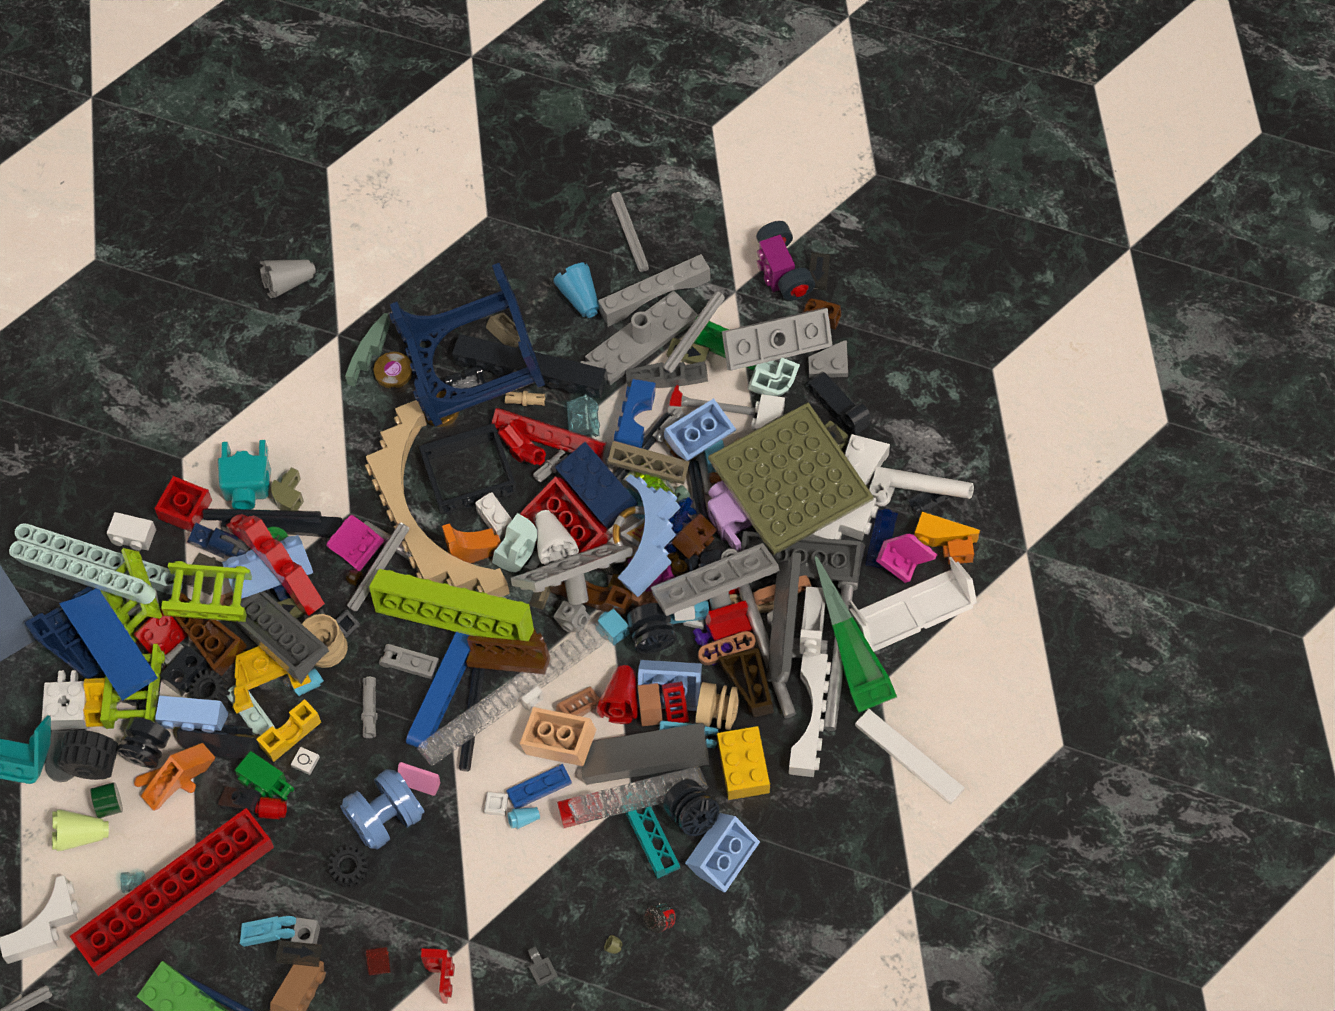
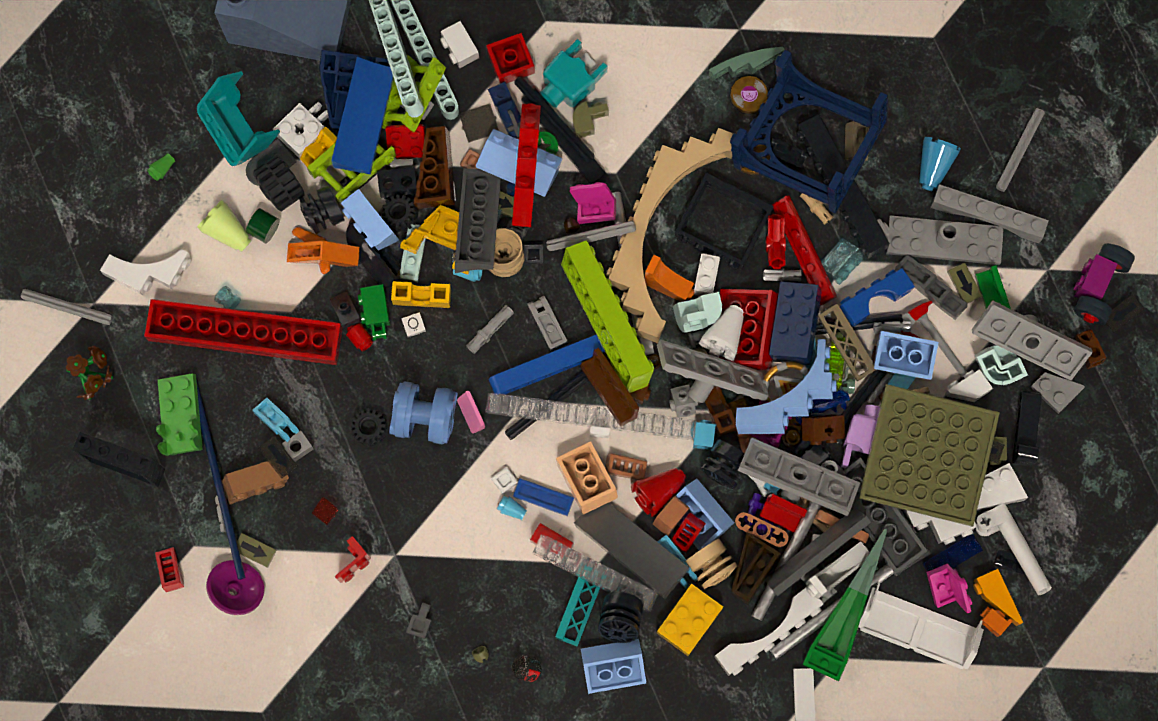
camera: 45 degrees right, 15 degrees up
(213, 610) = (452, 161): lime fence -> none
(693, 332) = (981, 275): light grey axle -> none

